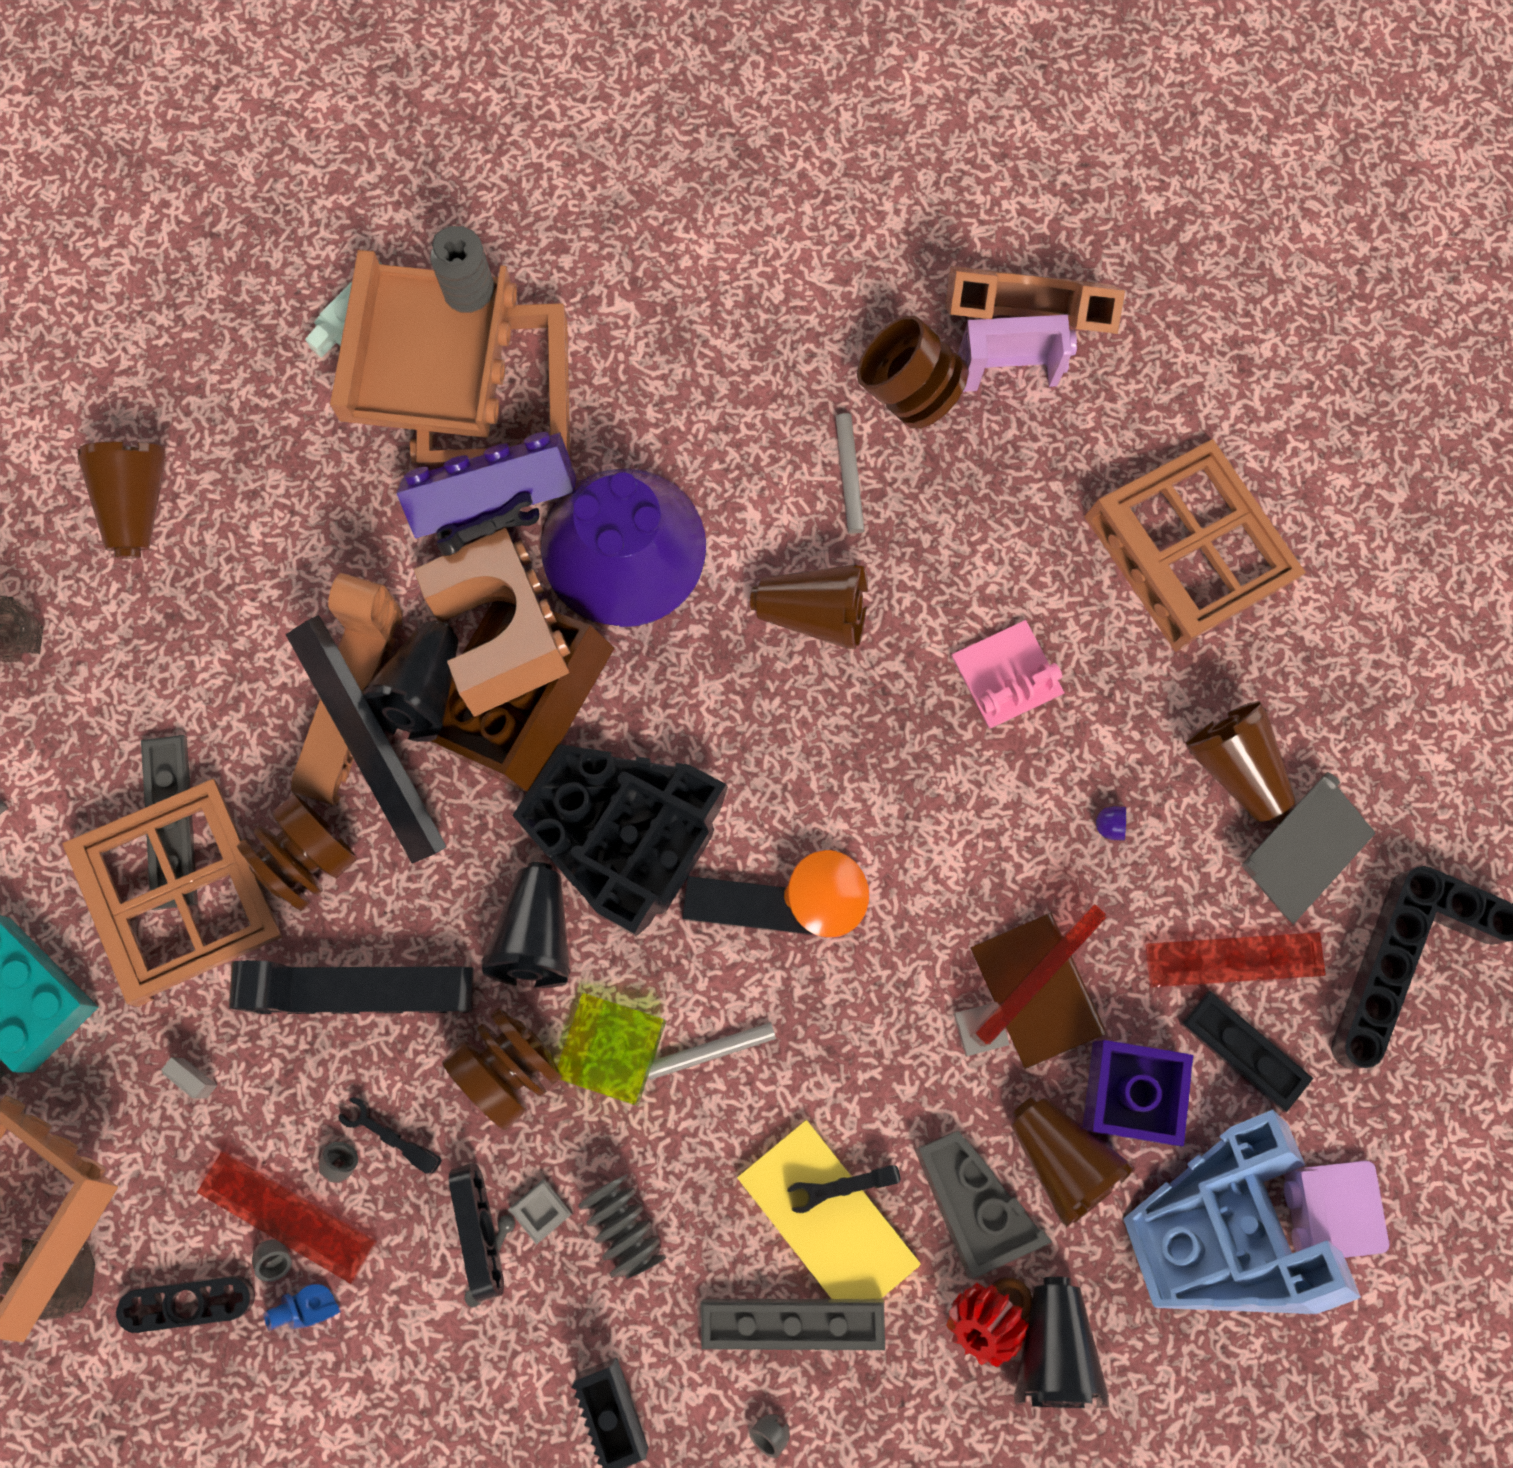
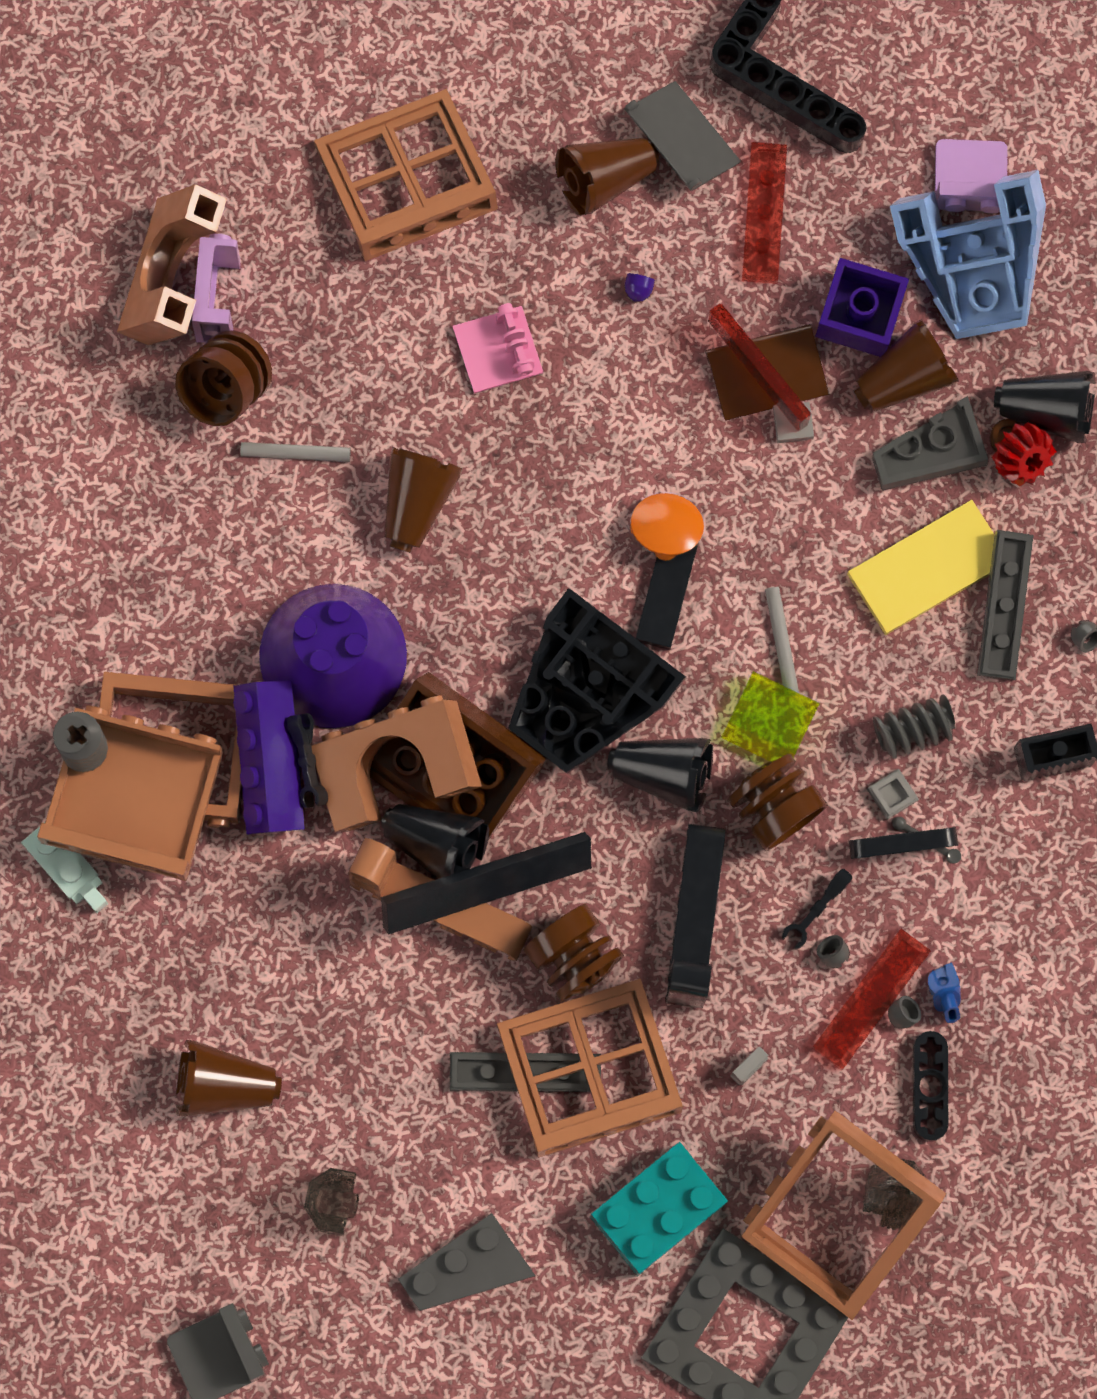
camera: 85 degrees left, 0 degrees up
(845, 1186) = (901, 521): black piece -> none
(1246, 1051) = (838, 218): black tile -> none

